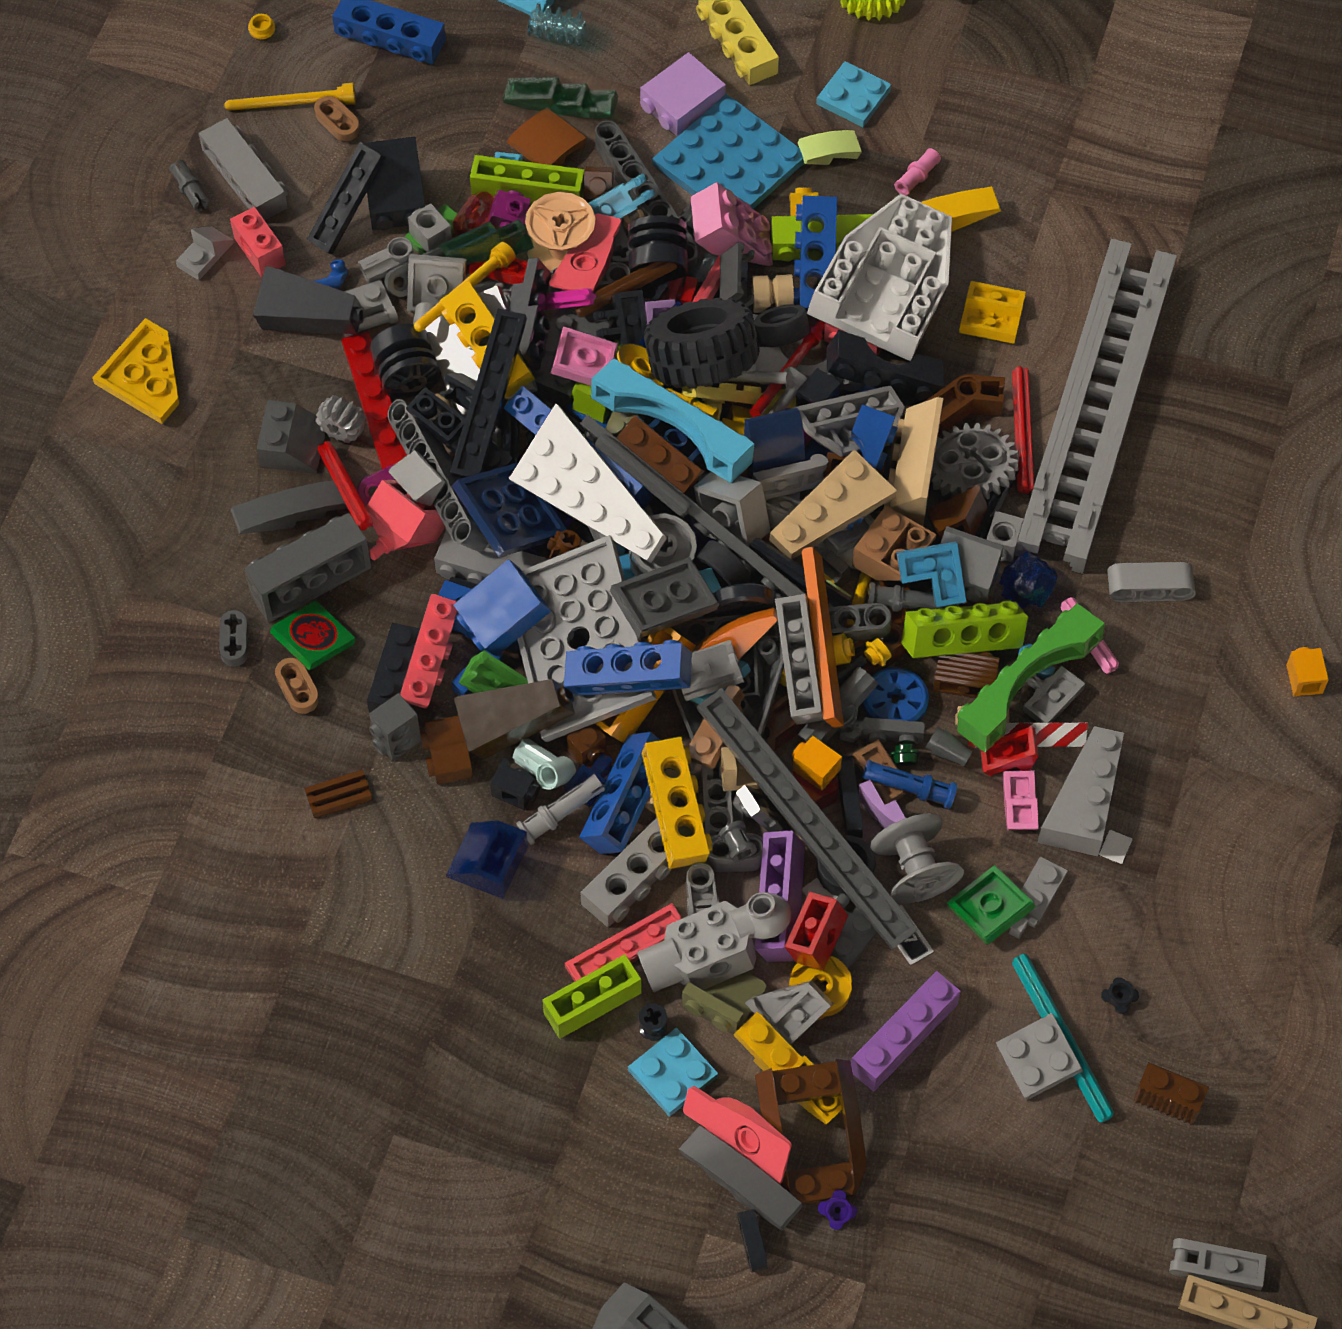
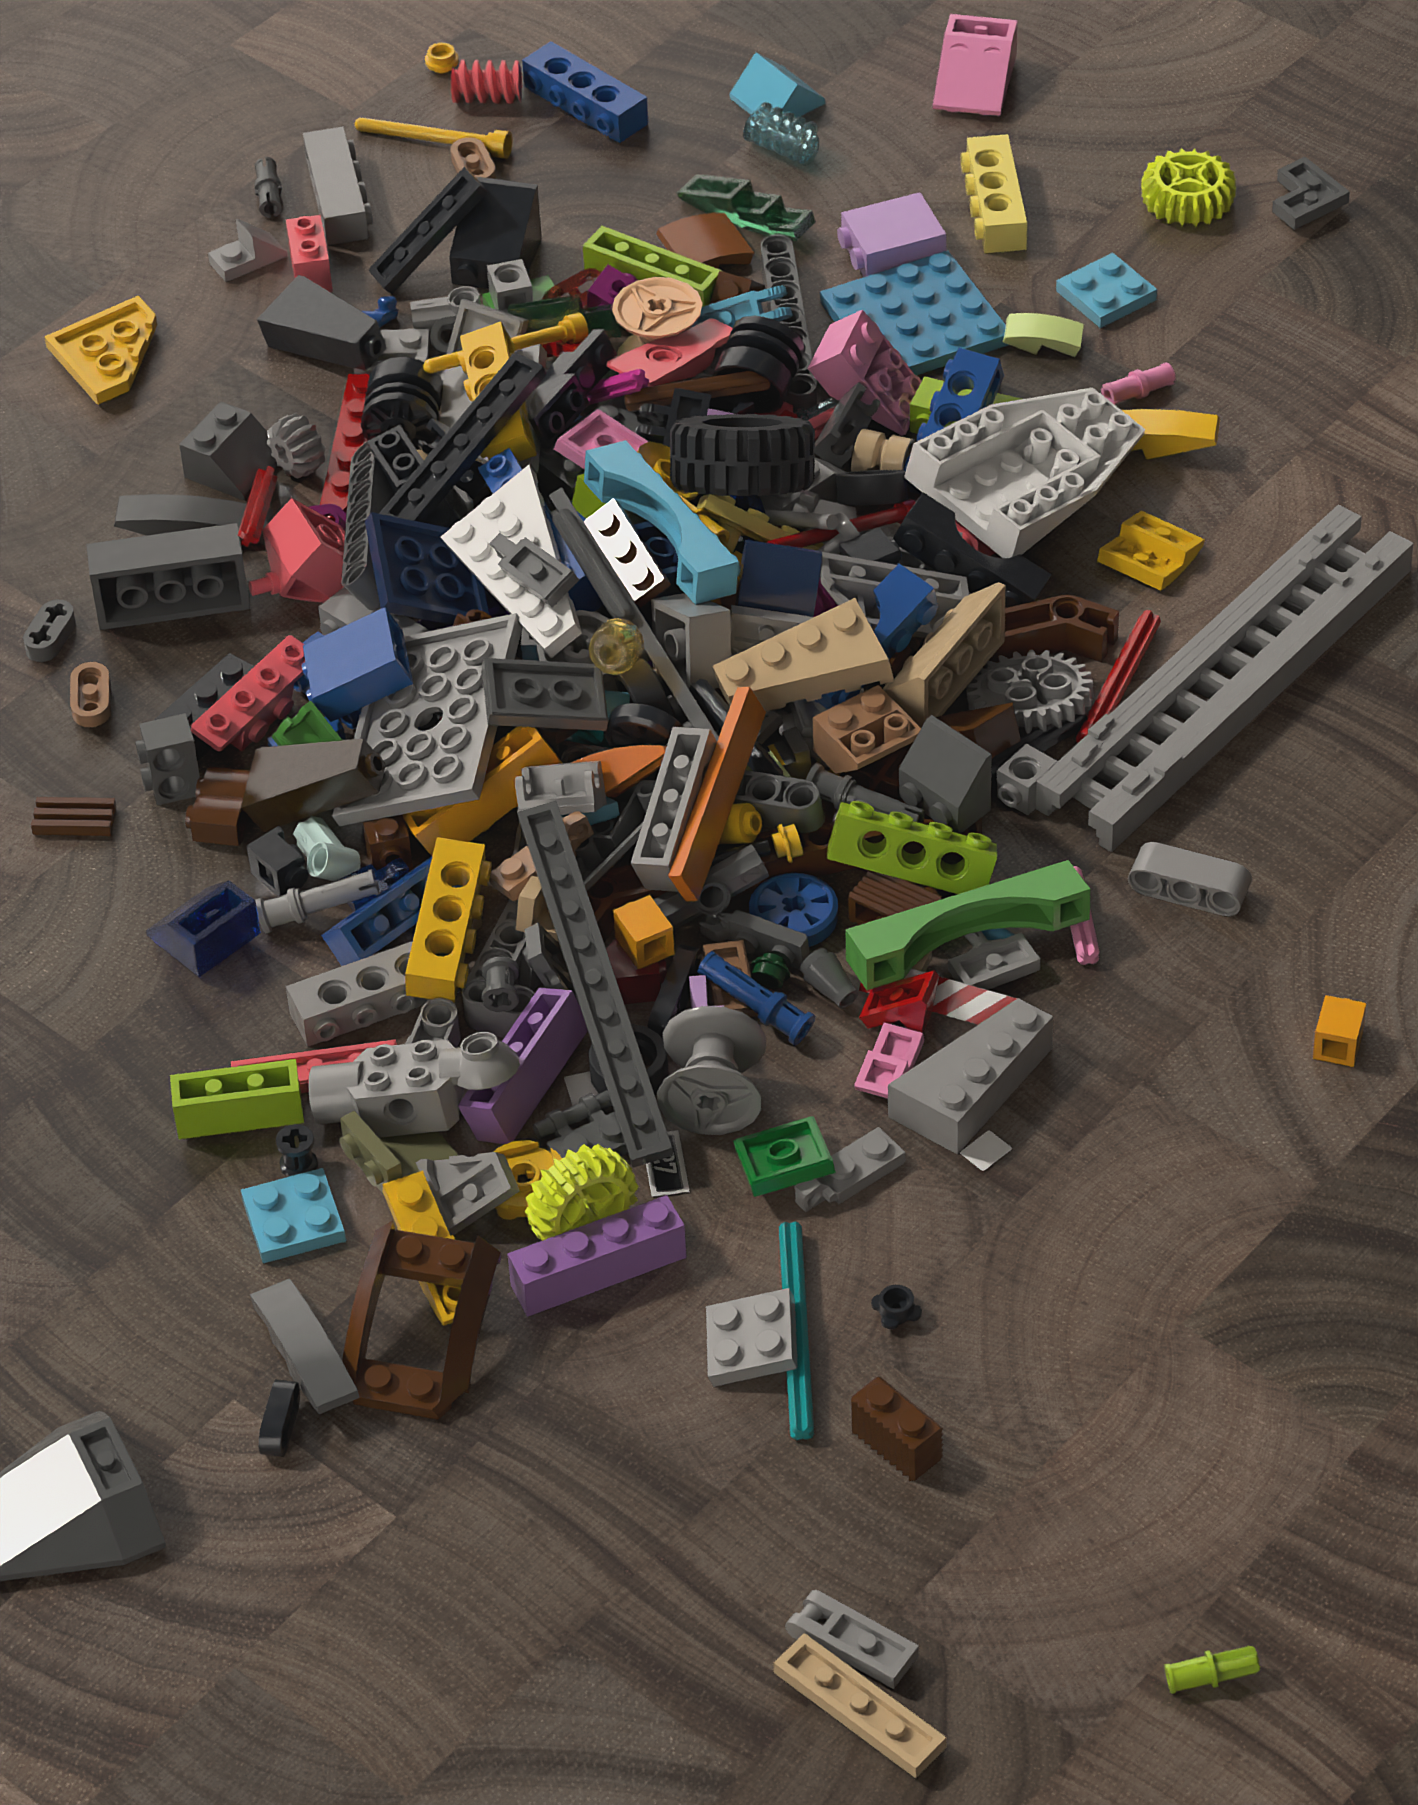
camera: 25 degrees right, 15 degrees down
(311, 40) = (486, 82): none -> coral piece
(312, 635) = (137, 649): tile -> none
(417, 478) = (339, 515): light grey slope -> none
(611, 498) = (534, 569): none -> hinge
(672, 672) = (455, 750): blue brick -> none
(698, 541) = (616, 646): none -> clear yellow head
(741, 1129) = (329, 1288): coral piece -> none
(816, 931) = (540, 1105): red brick -> none
(828, 1207) = (392, 1416): dark purple plate -> none
(880, 994) = (580, 1191): none -> neon yellow gear
(941, 565) = (903, 755): dark azure plate -> none
(1028, 581) = (1030, 831): clear blue hair -> none

